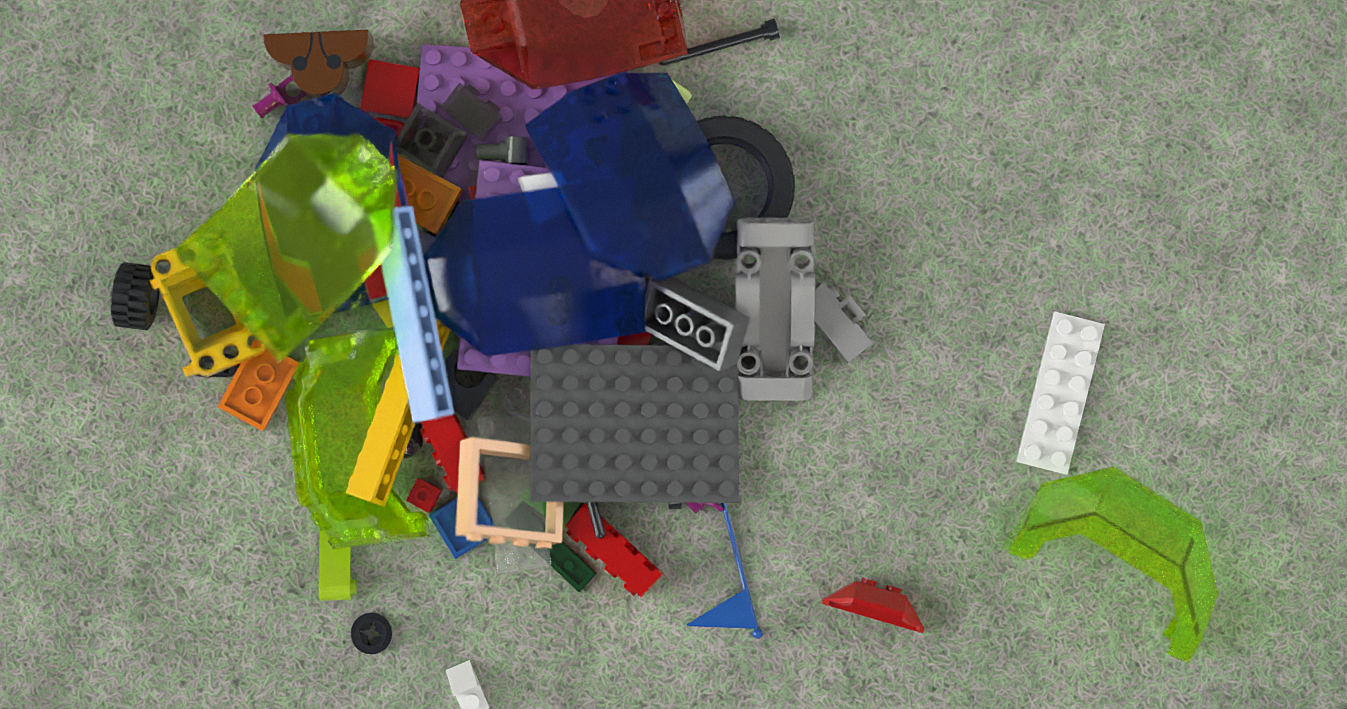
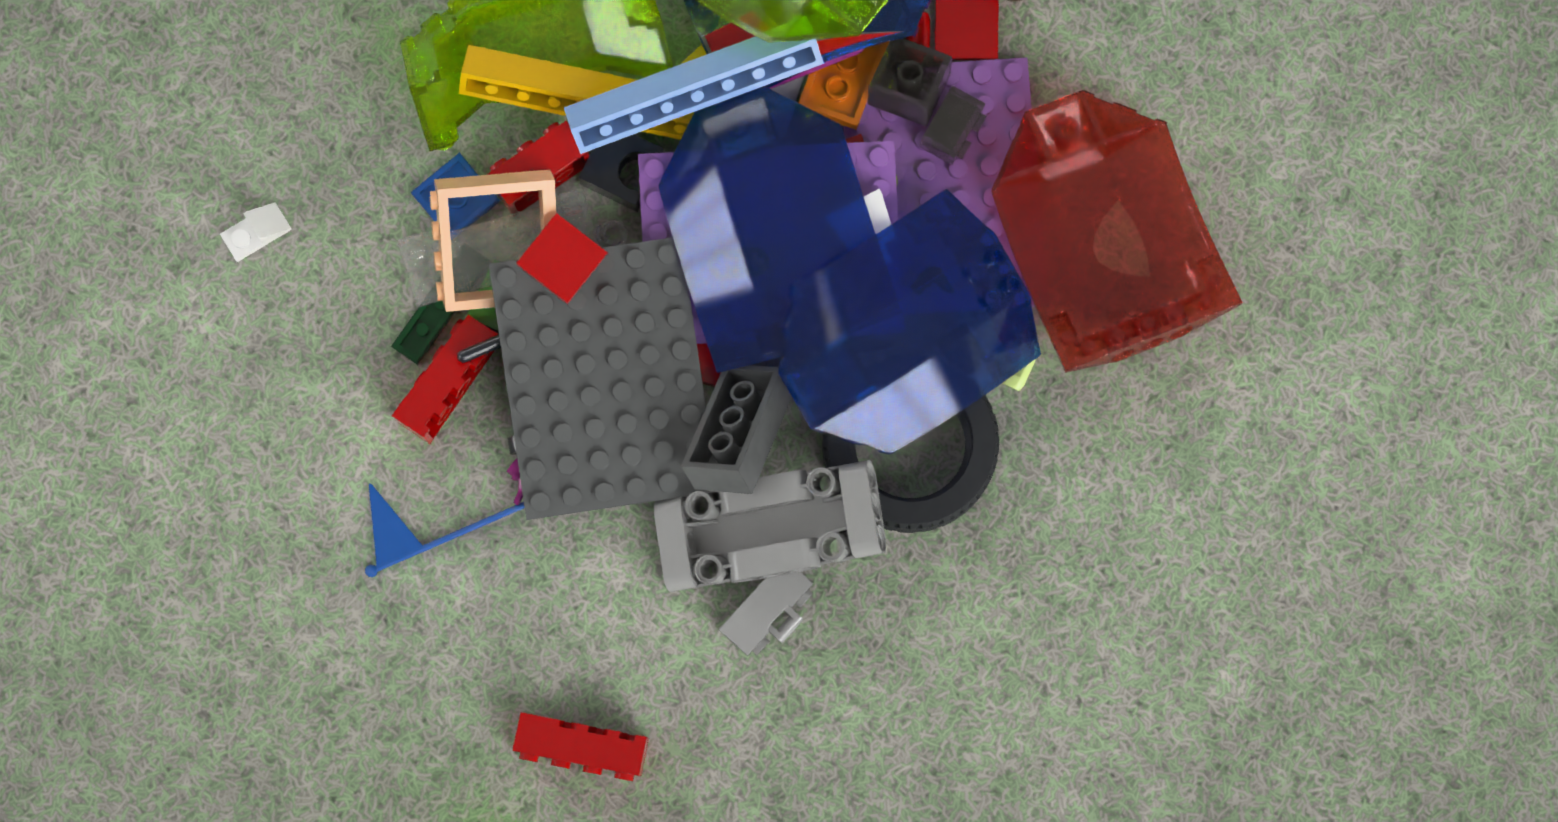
camera: 75 degrees right, 5 degrees down
(335, 572) = (372, 51): lime door -> none
(364, 623) = (297, 97): black gear -> none
(415, 441) = (541, 120): arm -> none
(424, 495) = (481, 142): red brick -> none
(512, 150) = (913, 180): dark grey pin -> none
(536, 441) = (561, 258): none -> red tile
(767, 31) = (1112, 468): black piece -> none
(876, 603) = (427, 710): red wedge -> none
(923, 485) = (580, 745): none -> red wedge

